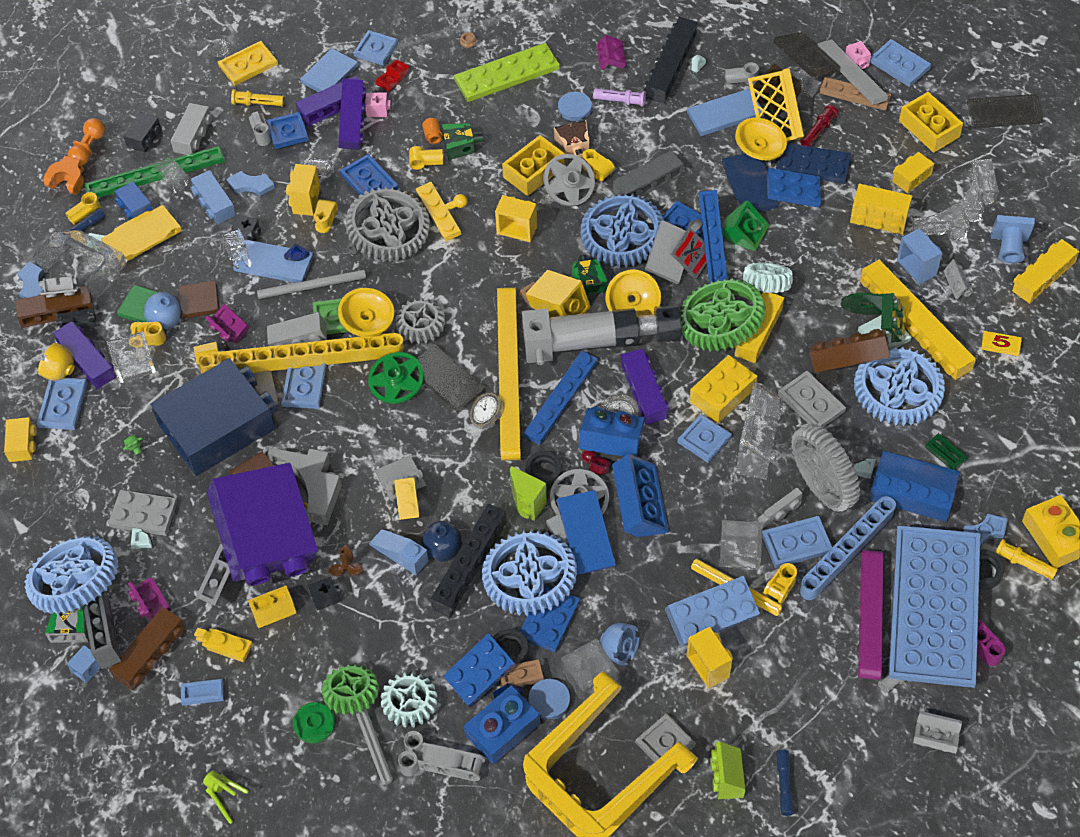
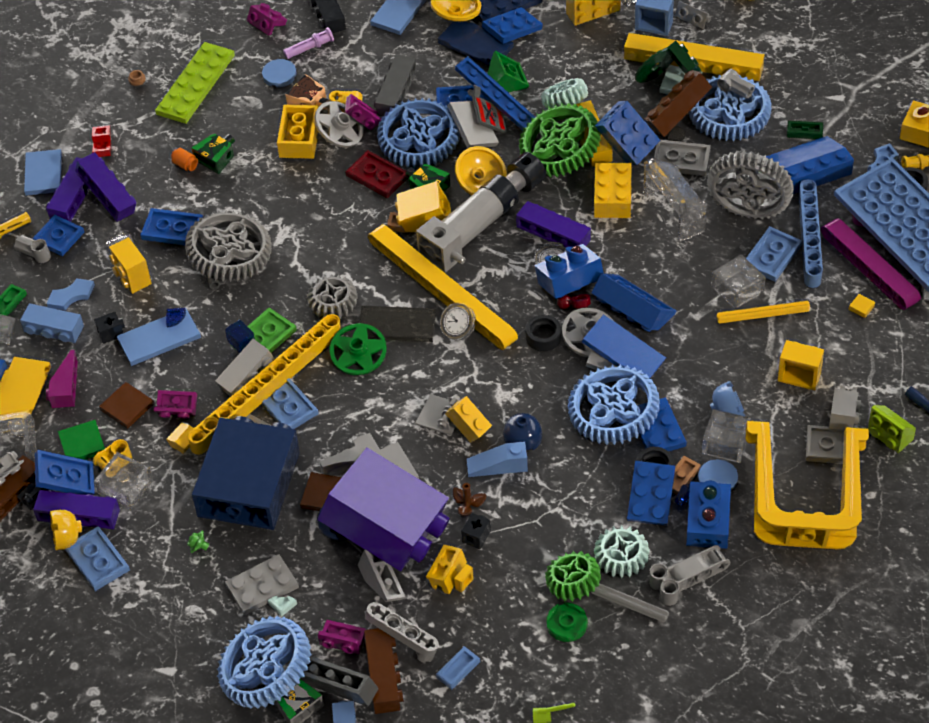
camera: 40 degrees left, 5 degrees down
(19, 439) = (94, 607): yellow brick -> none
(97, 320) = (63, 473): none -> blue plate
(163, 309) = (107, 428): medium blue cylinder -> none
(175, 249) = (63, 383): none -> magenta slope
(188, 627) = (425, 649): none -> light grey beam
(224, 643) = (440, 621): yellow hinge -> none
(237, 248) = (127, 340): clear hinge -> none
(276, 624) = (463, 578): none -> yellow tile
(311, 284) = (209, 332): light grey piece -> none
(318, 302) = (239, 335): none -> clear blue brick
(324, 215) = (164, 275): yellow piece -> none
(366, 304) = (290, 314): yellow dish -> none
(375, 47) = (62, 130): medium blue tile -> none
(377, 105) = (119, 166): bright pink brick -> none
(419, 157) = (197, 185): yellow piece -> none
(439, 211) = (268, 217): yellow plate -> none
(468, 560) = (559, 429): black brick -> none
(516, 218) = (329, 175): yellow piece -> none
(528, 493) = (552, 353): lime slope -> none
(560, 242) = (377, 174): none -> dark red tile
(560, 397) = (499, 277): blue plate -> none
(595, 181) = (361, 112): none -> magenta bracket
(704, 438) = (633, 233): medium blue tile -> none
(708, 723) = (844, 408): none -> light grey hinge
(716, 607) = (768, 335): medium blue piece -> none
(776, 347) = (627, 133): none -> blue piece
(780, 508) = (739, 242): light grey hinge -> none
(780, 586) = (792, 285): yellow piece -> none
(825, 645) = (861, 305): none -> yellow tile
(916, 365) = (731, 81): none -> light grey piece
(1001, 343) = (765, 37): yellow tile -> none

